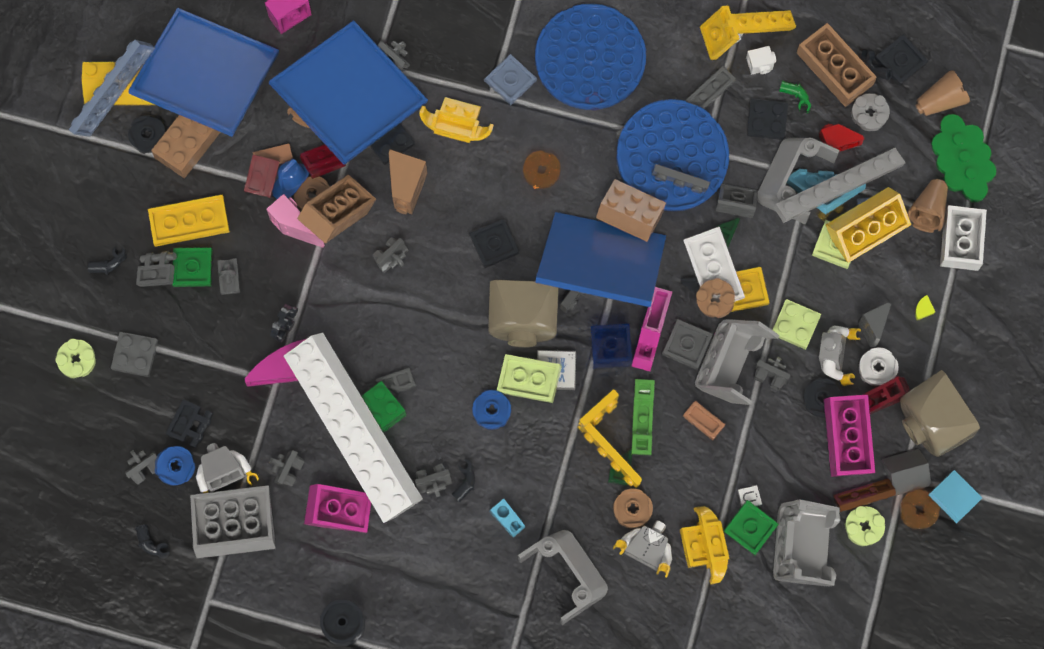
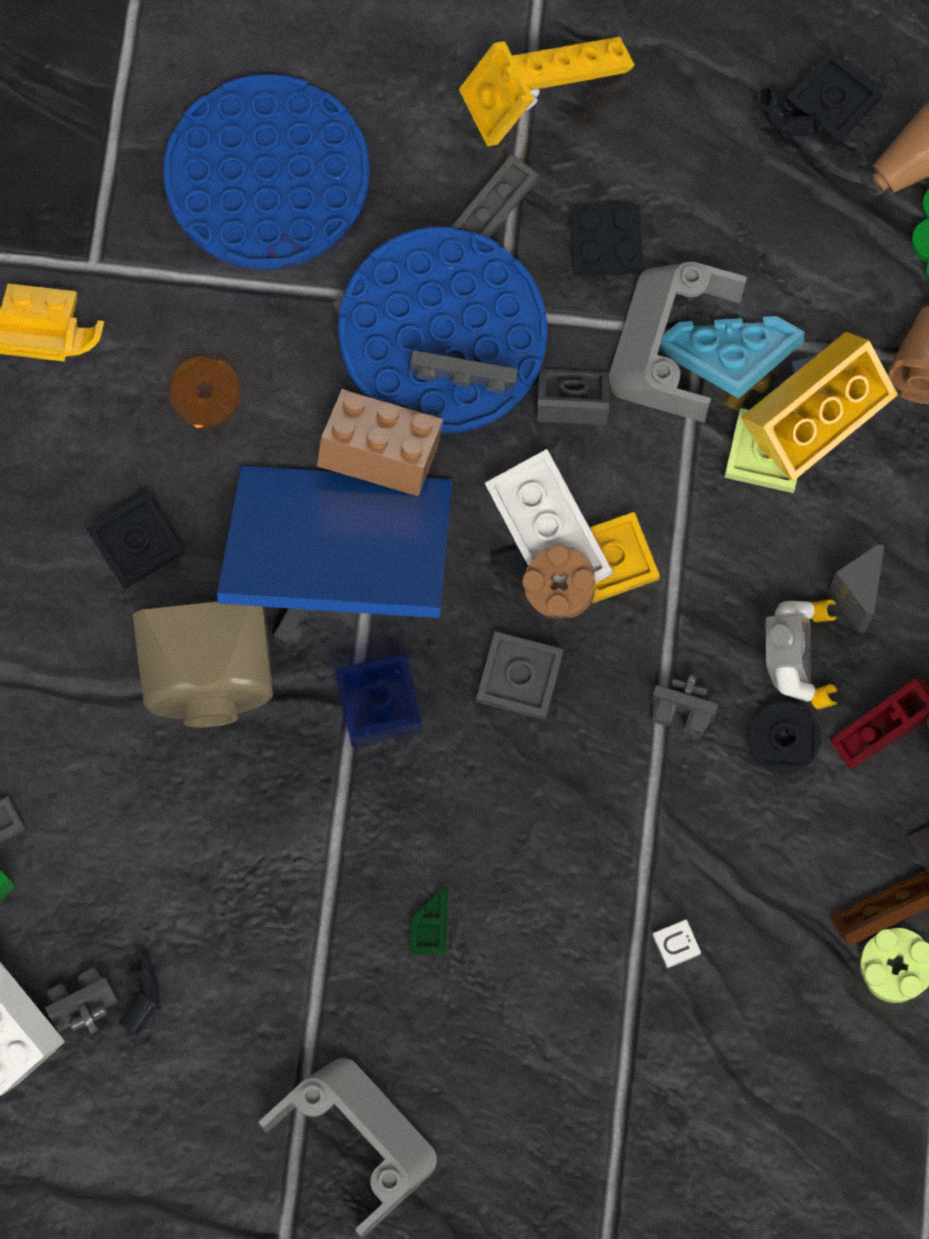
camera: 10 degrees left, 0 degrees up
(500, 403) = (156, 839): blue plate -> none
(507, 518) = (230, 1052): medium azure leg -> none
(510, 79) = (125, 234): sand blue tile -> none
(529, 378) = (234, 783): yellowish green plate -> none
(567, 360) = (283, 759): white tile -> none
(587, 425) = (366, 838): yellow bracket -> none
(625, 500) = (444, 987): medium nougat plate -> none
(642, 417) = (457, 824): bright green slope -> none
(648, 547) = (501, 1067): torso -> none
(651, 329) = (450, 657): dark pink slope -> none
(704, 420) = (571, 812): nougat tile -> none
(706, 544) = (608, 1045): yellow plate -> none
(727, 356) = (597, 688): light grey windscreen -> none
(728, 230) = (565, 453): dark green tile -> none
(750, 527) = (686, 1000): green plate -> none
(761, 60) = (579, 134): white brick -> none
(796, 324) = (714, 608): yellowish green plate -> none
(799, 92) = (656, 181): green piece -> none
(803, 543) = (790, 1015): light grey windscreen -> none
(836, 64) = (717, 122): medium nougat brick -> none
(839, 185) = (755, 341): light grey plate -> none
(840, 137) = (744, 253): red slope -> none
(849, 435) = (843, 801): dark pink brick -> none
(871, 358) = (861, 652): white plate -> none
(873, 102) = (797, 181): light grey plate -> none

